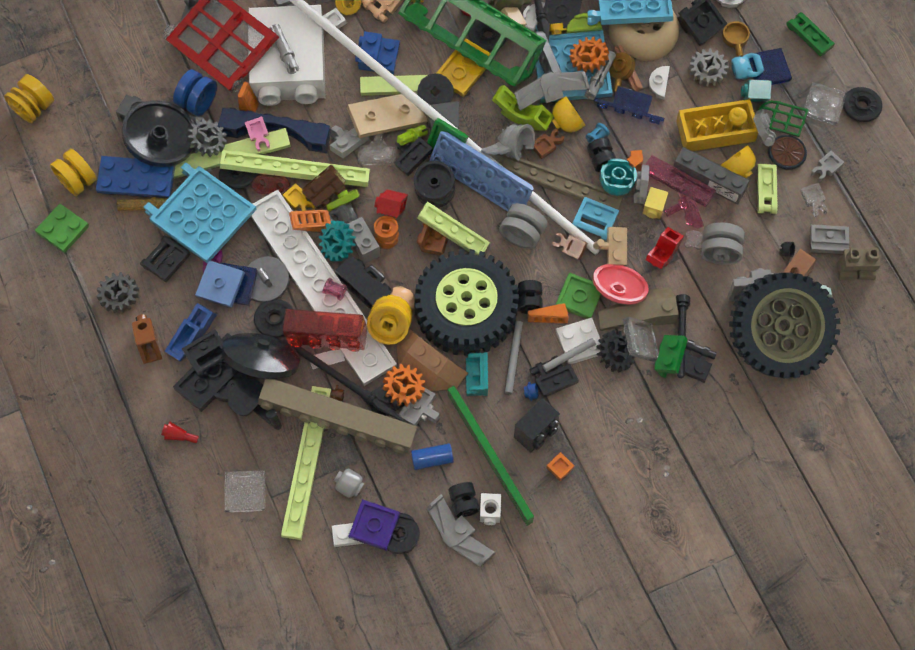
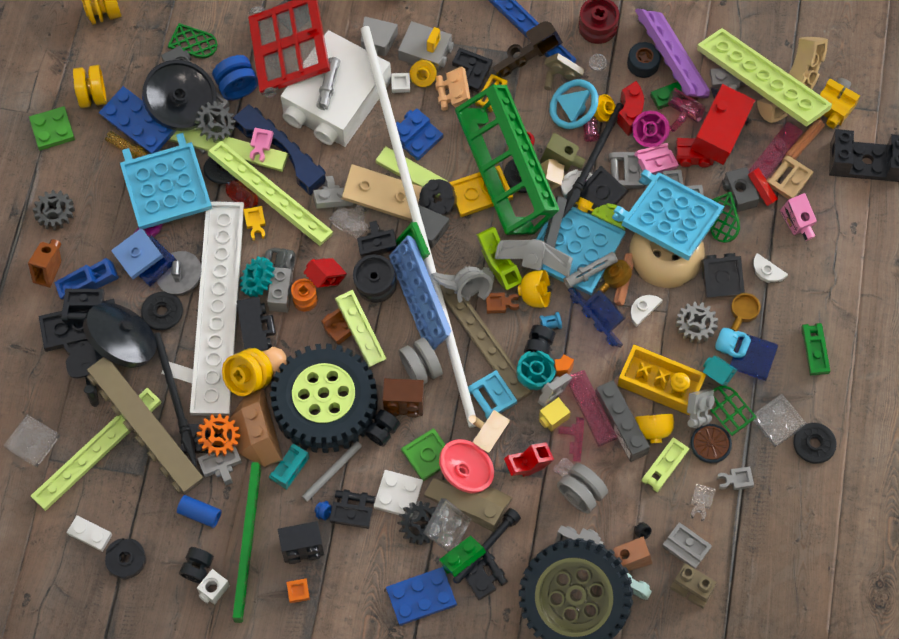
camera: 35 degrees right, 0 degrees up
(132, 76) = (191, 29): none -> green window
(169, 262) = (112, 209): black plate -> none
(174, 432) = (12, 355): red cone -> none
(247, 99) = (273, 109): orange slope -> none
(321, 218) = (264, 247): orange slope -> none
(324, 186) = (280, 222): reddish brown brick -> none
(325, 329) = (186, 346): clear red brick -> none
(334, 289) = (223, 316): clear pink bush -> none
(337, 394) = (161, 409): reddish brown plate -> none
(343, 198) = (291, 243): lime plate -> none
(348, 483) = (115, 488): light grey head -> none
(374, 525) = (108, 537): dark purple tile -> none
(411, 135) = (388, 223): lime axle -> none
(458, 533) = (173, 589): light grey plate -> none
(530, 260) = (403, 397): none -> reddish brown brick
(549, 314) = (389, 454): orange slope -> none
(568, 355) = (375, 499): light grey bar -> none
(572, 246) = (453, 405): plate -> none
(589, 54) = (592, 245): orange gear -> none
(658, 408) = (421, 596): none -> blue plate

